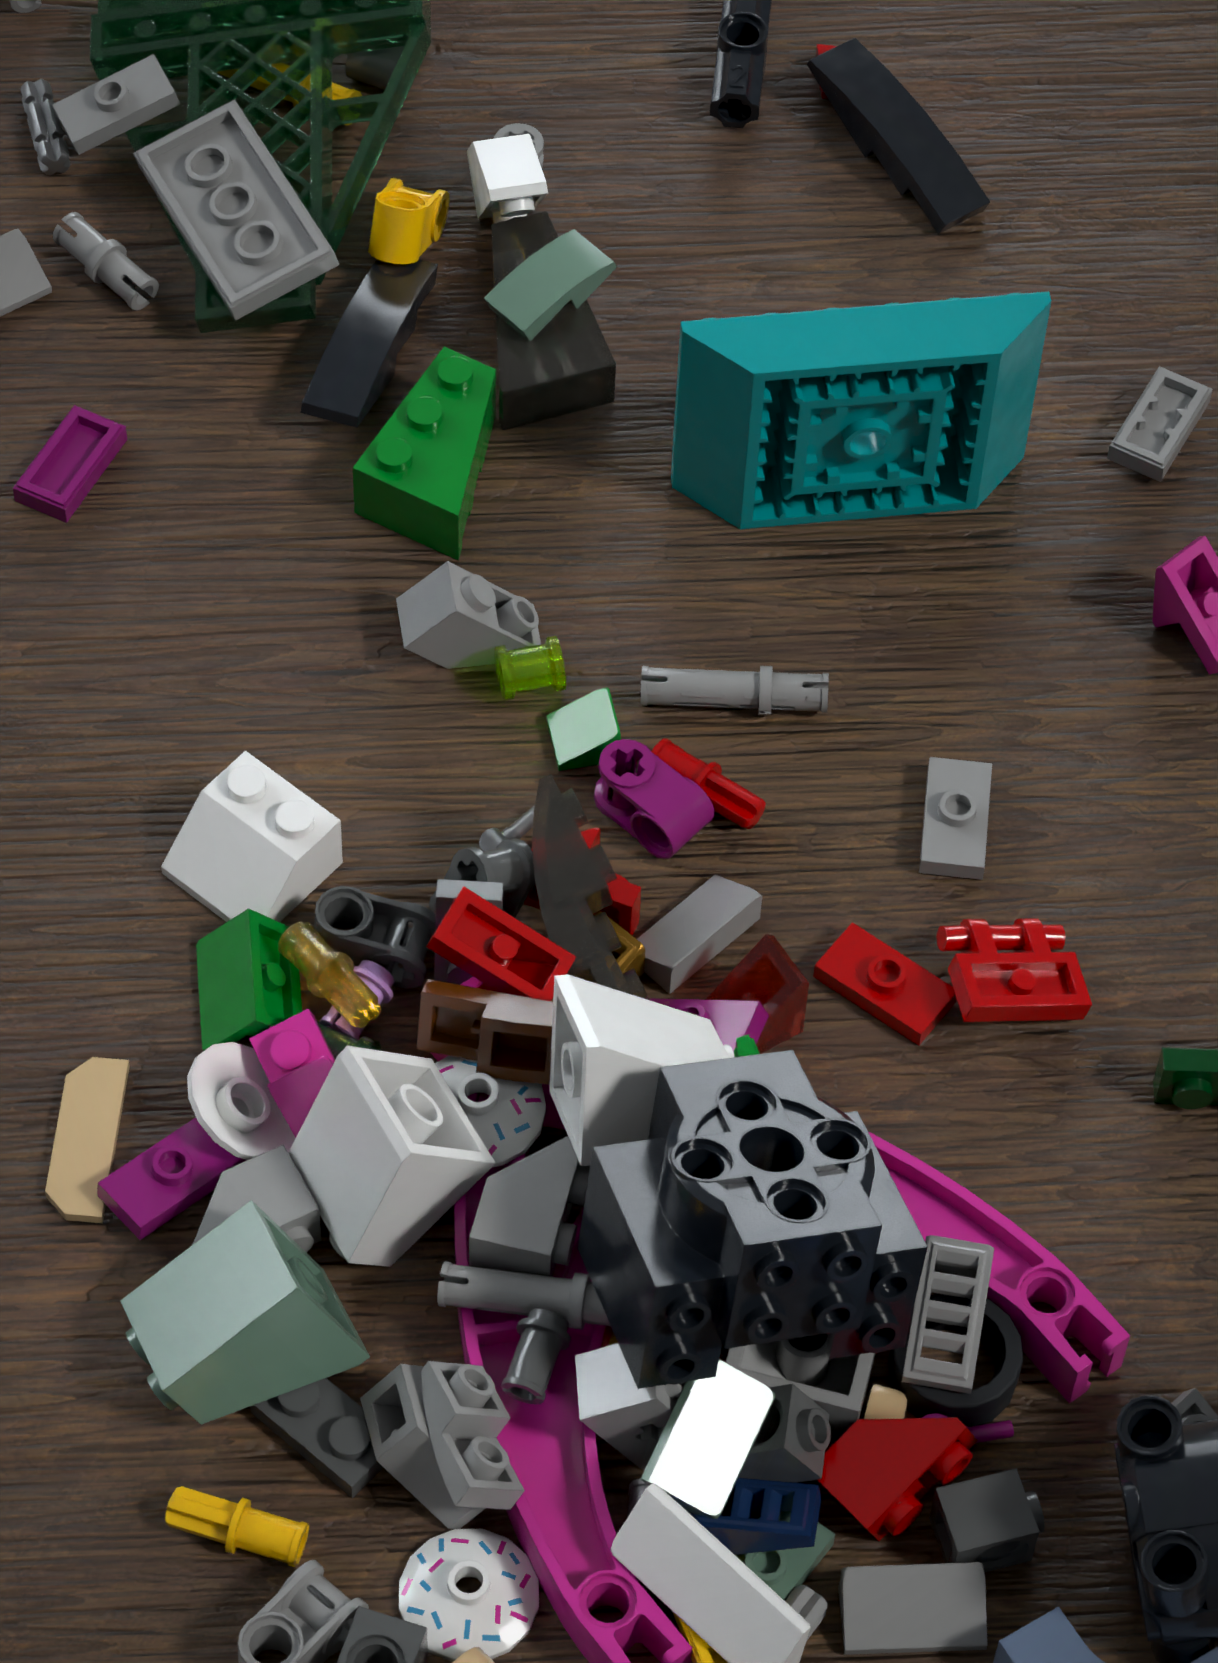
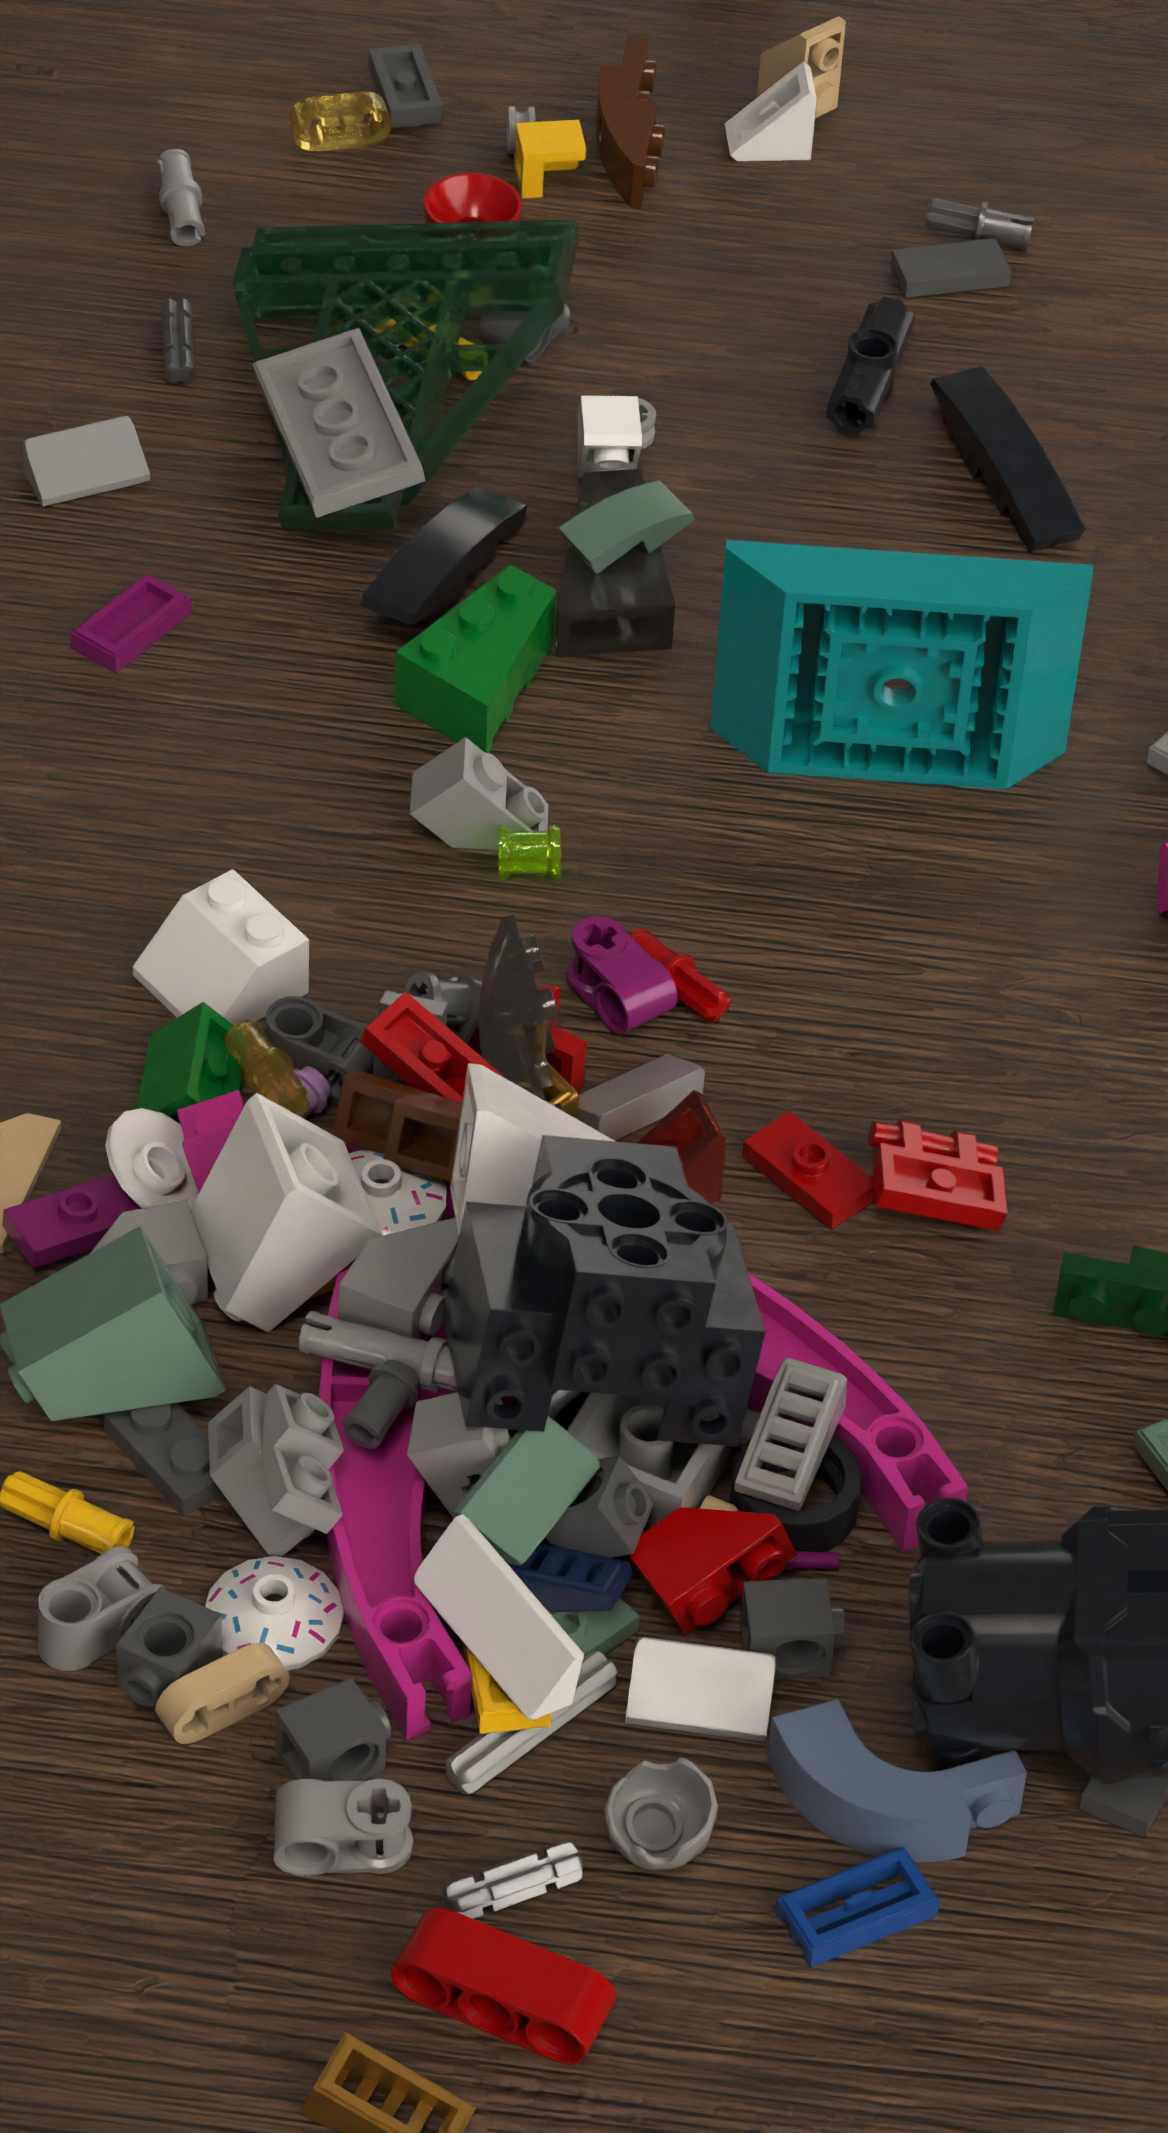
camera: 10 degrees right, 10 degrees down
(105, 261) = (206, 458): light grey pin -> none
(116, 104) = (248, 325): light grey plate -> none
(406, 222) = (504, 462): yellow piece -> none
(583, 730) = (563, 908): slope -> none
(735, 689) = (737, 902): light grey pin -> none
(955, 818) = (916, 1042): light grey plate -> none

